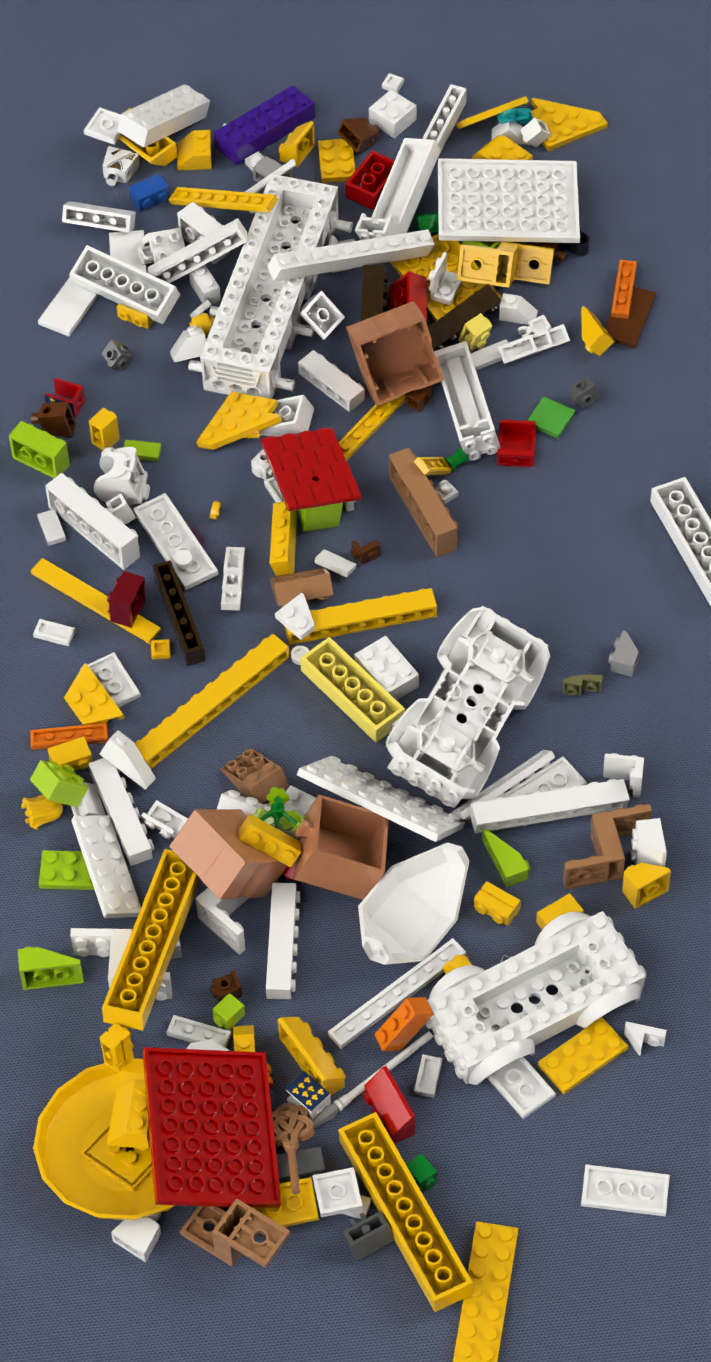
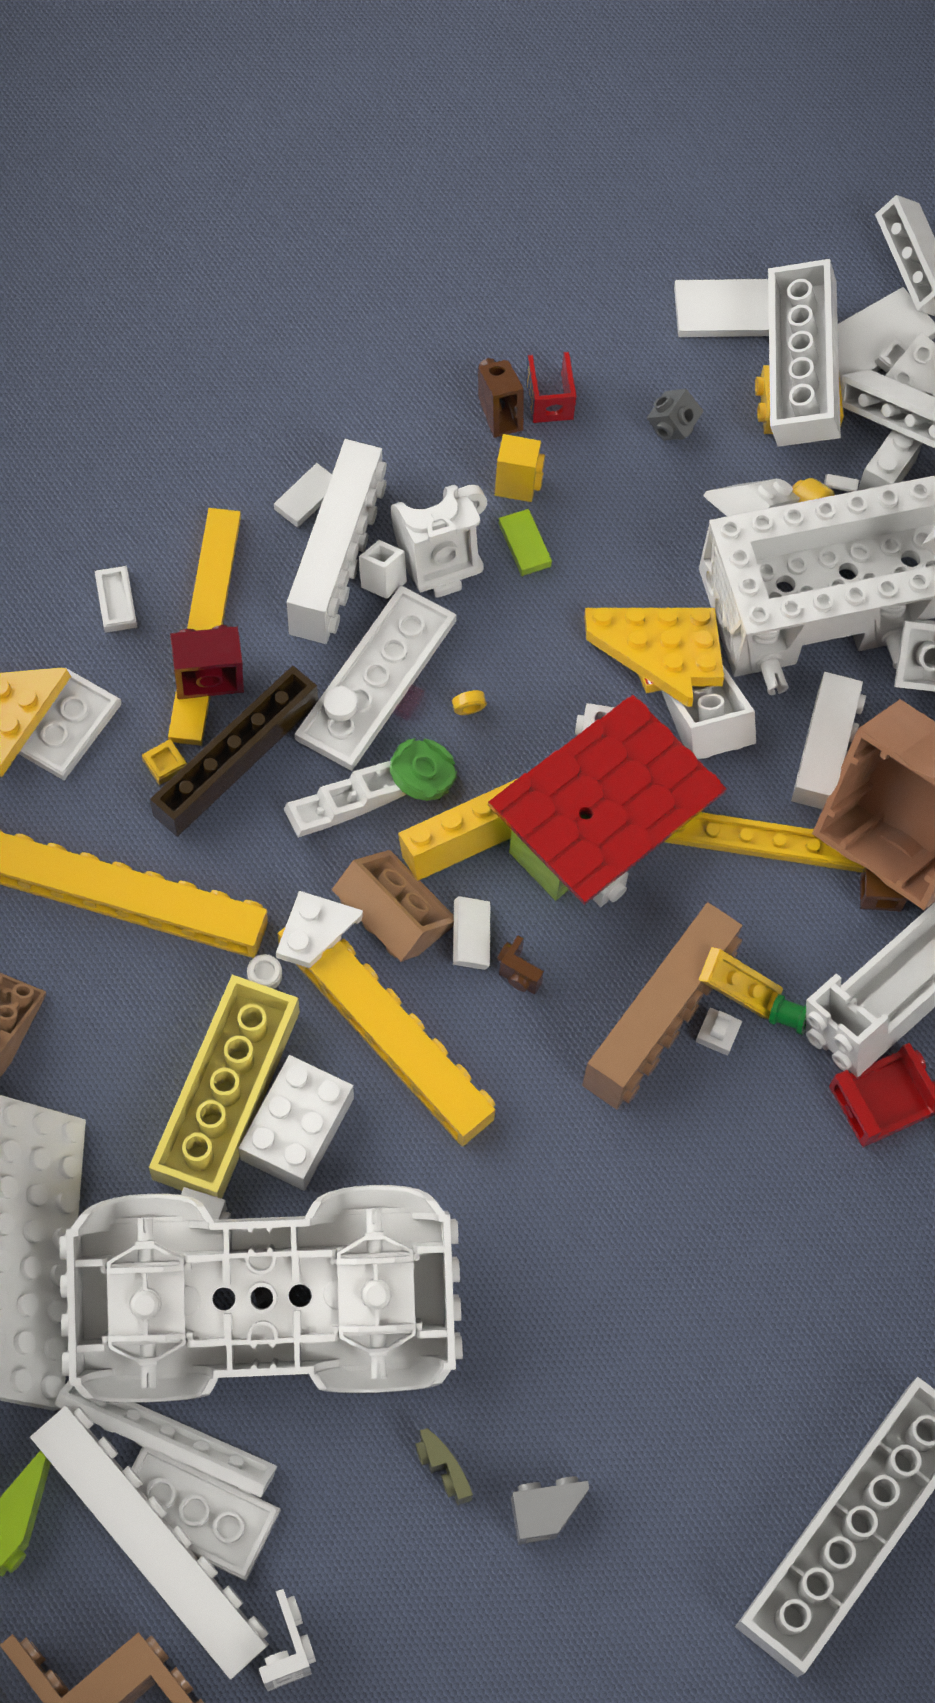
camera: 55 degrees right, 10 degrees up
(39, 449) = (427, 402): lime brick -> none
(238, 544) = (423, 769): none -> bright green tile

